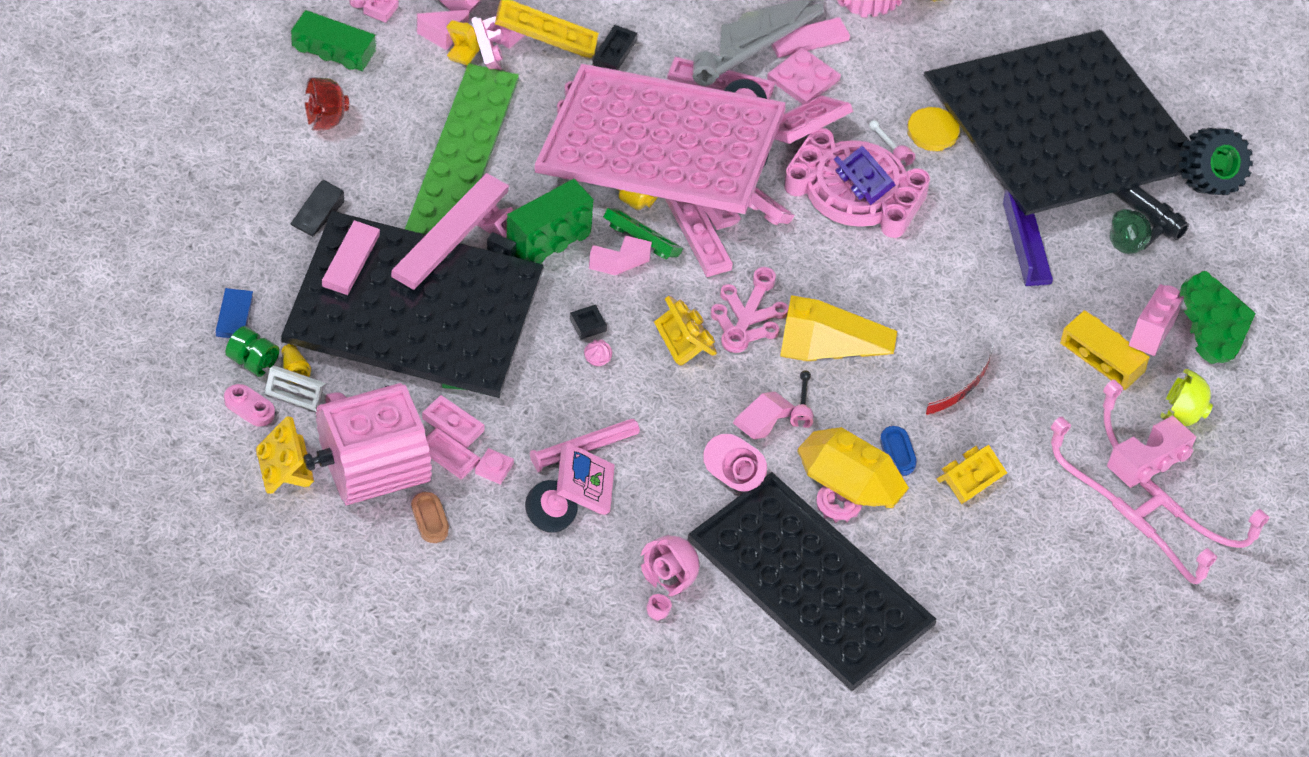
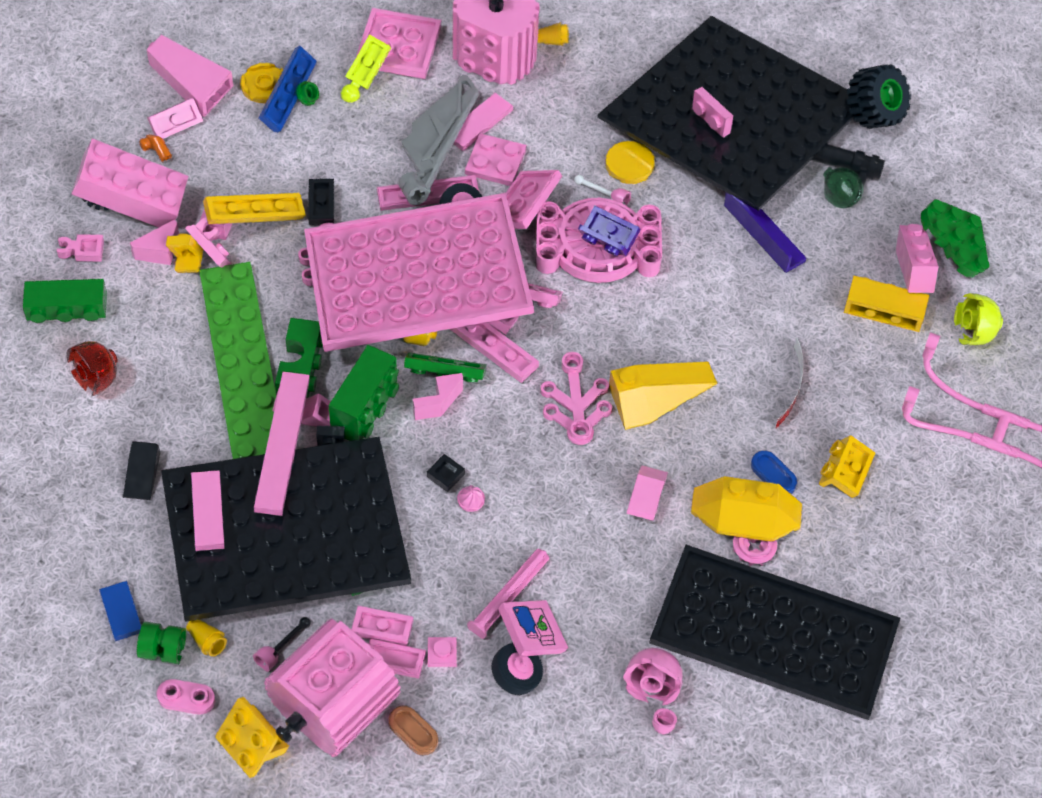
camera: 25 degrees left, 5 degrees up
(296, 378) = (220, 657): white tile -> none
(522, 158) = (303, 339): none -> green arch
(684, 332) = (534, 446): yellow bracket -> none
(735, 462) = (648, 546): bright pink piece -> none
(802, 410) = (675, 474): bright pink hinge -> none
(1033, 108) = (712, 112): none -> bright pink plate
(1166, 445) = (975, 392): bright pink arch -> none

